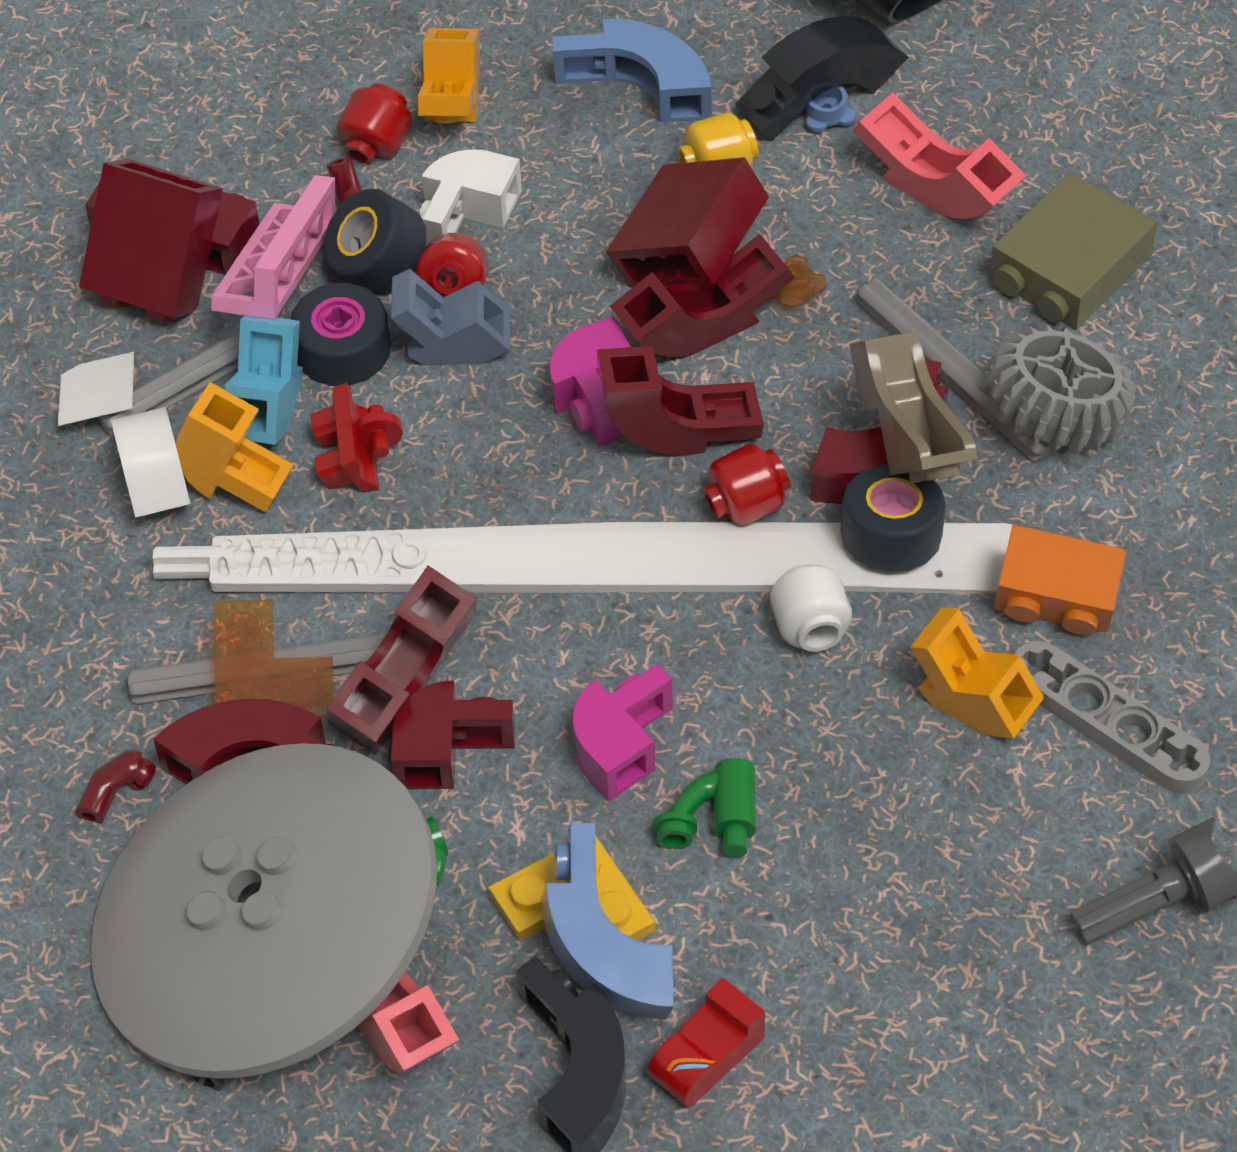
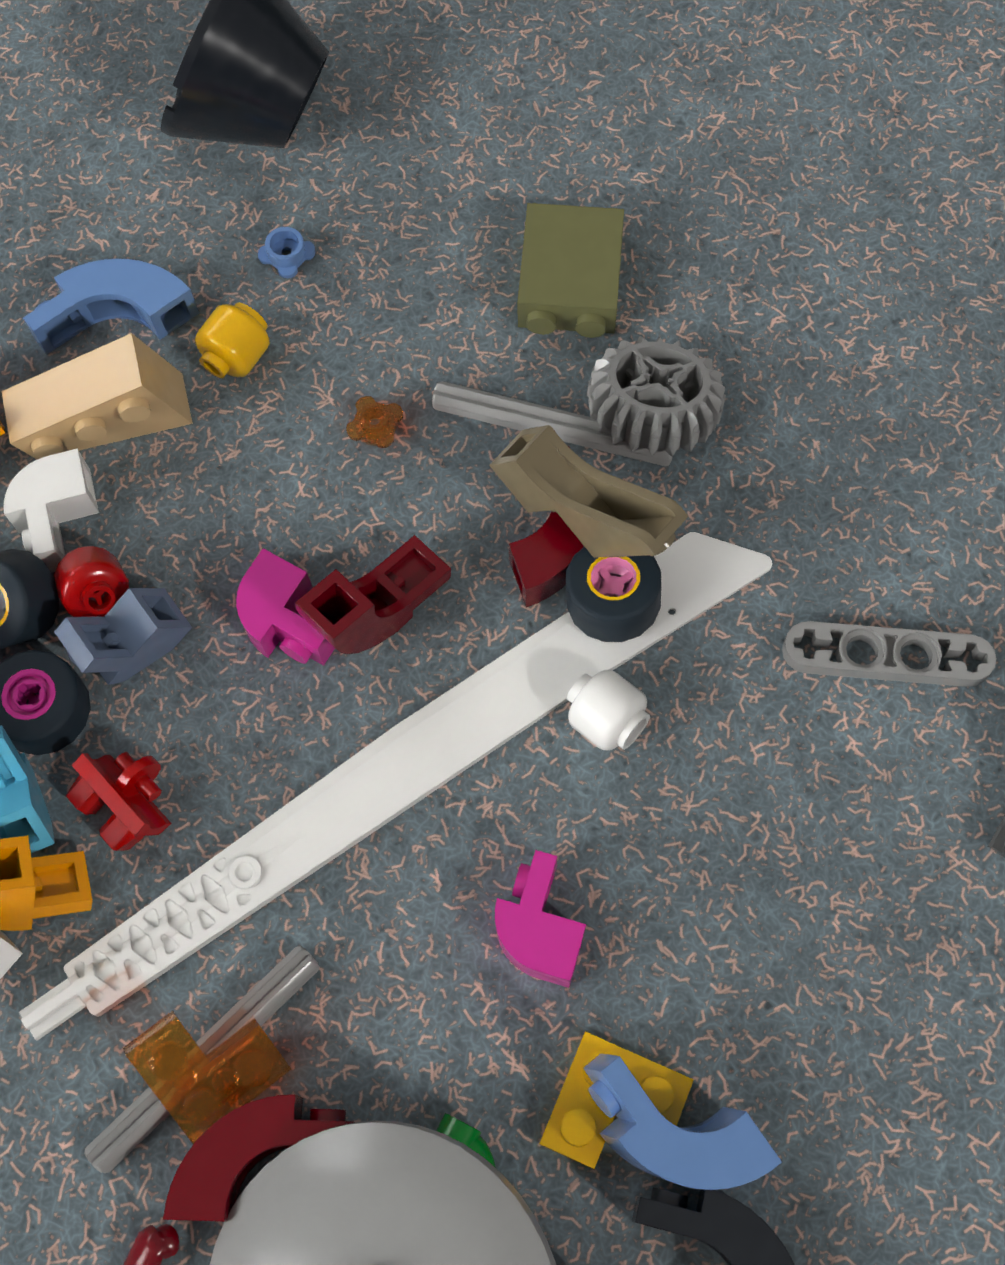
camera: 35 degrees left, 15 degrees up
(404, 662) = (323, 1012): dark red arch -> none
(438, 724) = (386, 1033): dark red brick -> none
(569, 134) = (96, 400): none -> tan wedge
(689, 222) = (262, 425): dark red brick -> none
(692, 318) = (317, 506): dark red arch -> none
(708, 1044) = (819, 1168): red leg -> none
(734, 797) = (676, 929): green plant -> none
(746, 484) = (476, 631): red head -> none
(812, 62) = (255, 222): black arch -> none
(932, 171) = (419, 261): coral arch -> none
(972, 685) = (782, 694): light orange brick -> none
(1059, 580) = (776, 563): orange brick -> none

